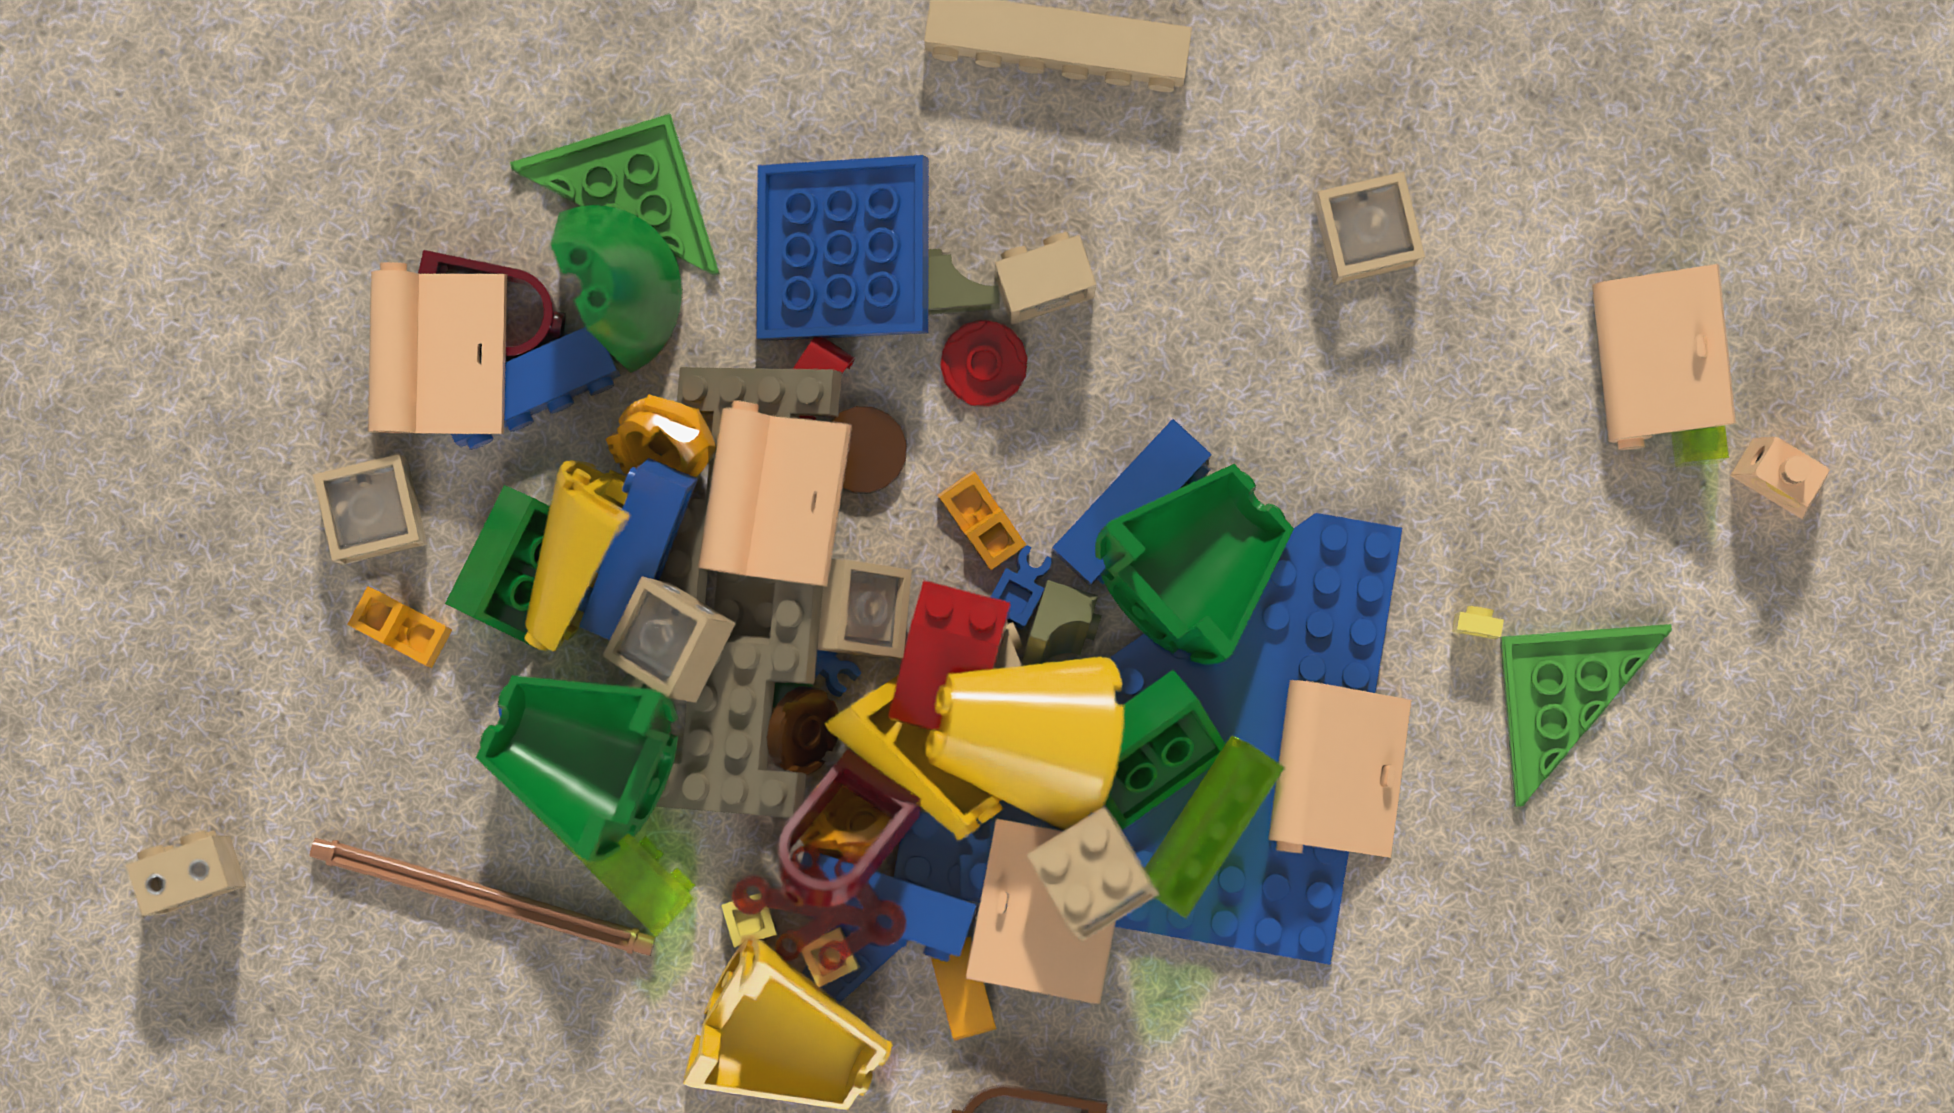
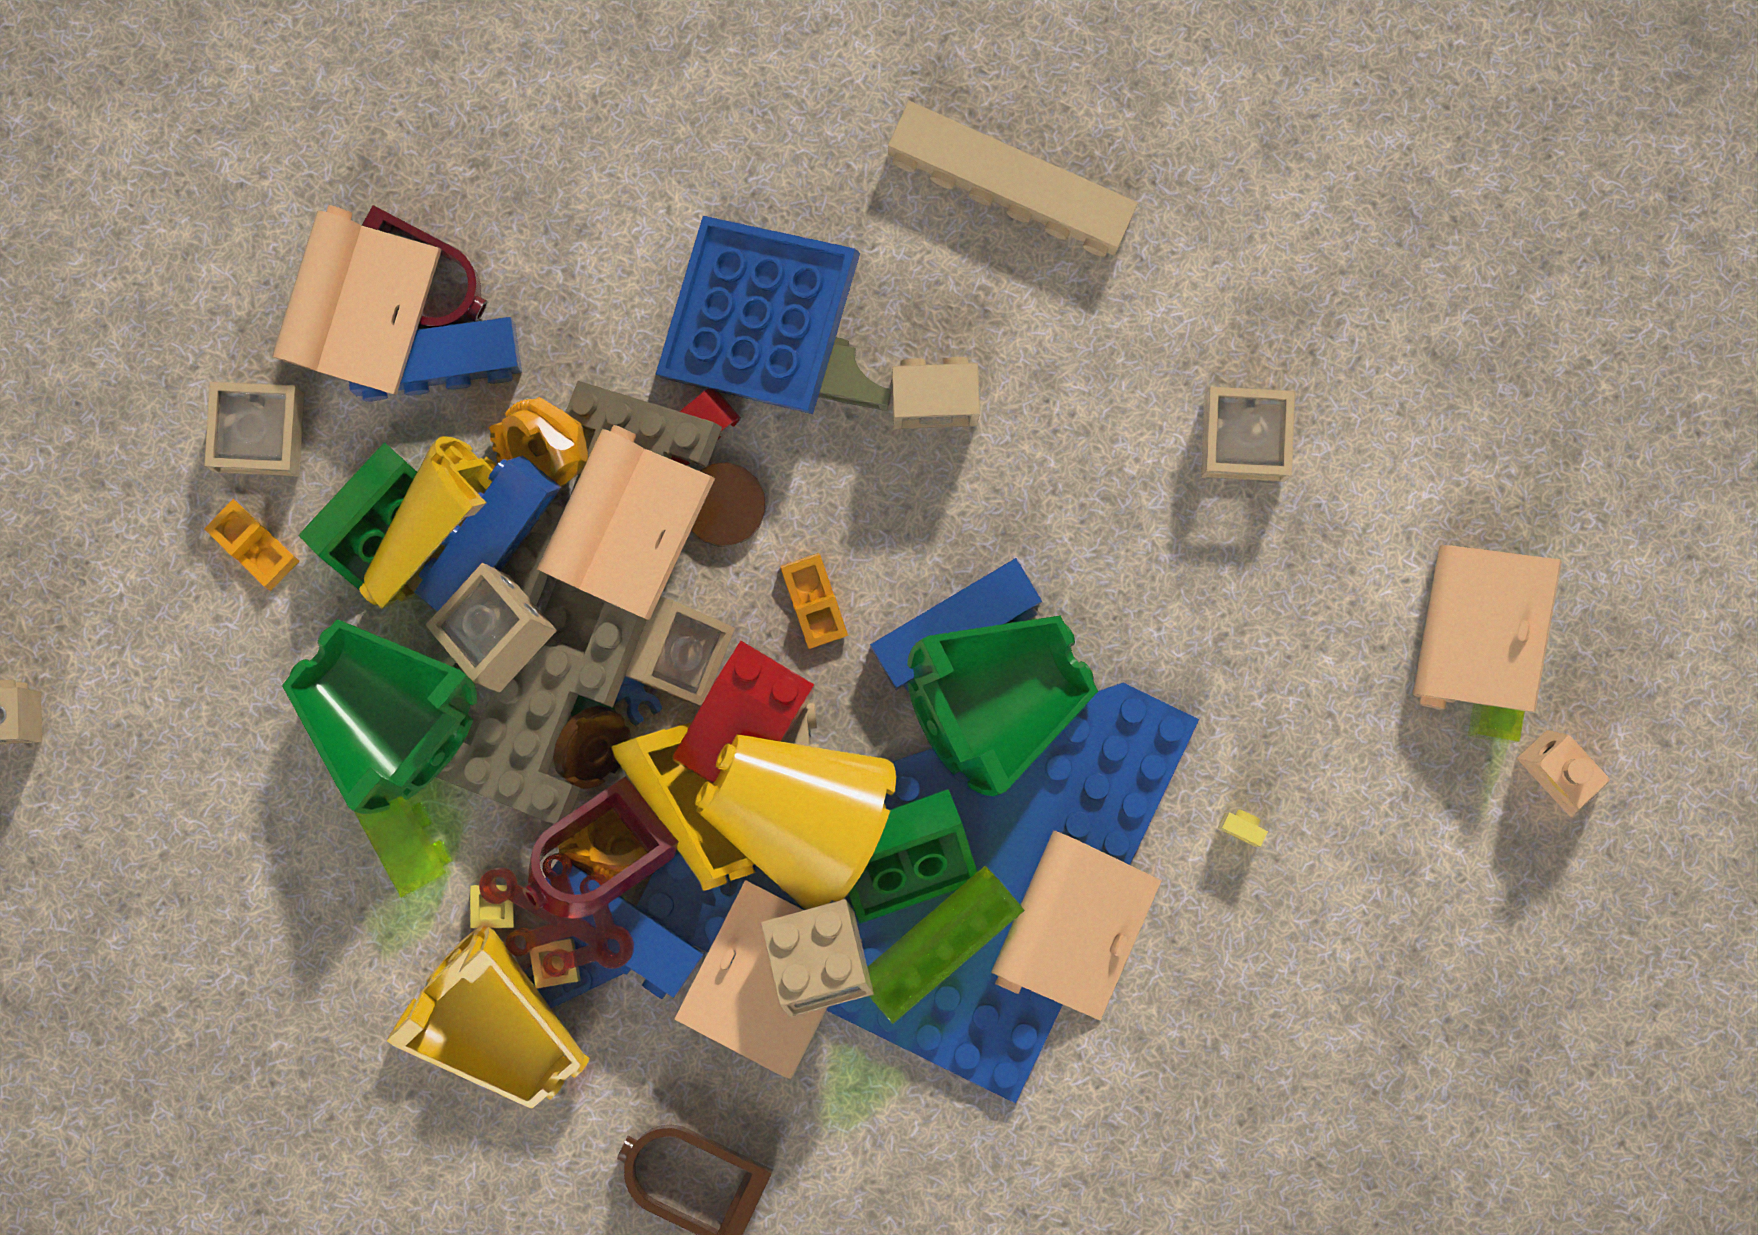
camera: 10 degrees right, 0 degrees up
(482, 897) = (254, 814): nougat piece -> none
(626, 279) = (547, 284): green cone -> none
(635, 172) = (585, 198): bright green tile -> none
(963, 998) = (668, 1039): light orange slope -> none
(987, 377) = (852, 470): red tile -> none
(1020, 588) = (830, 674): blue plate -> none
(1061, 623) = (858, 717): olive arch -> none
(1560, 688) = (1302, 909): bright green tile -> none

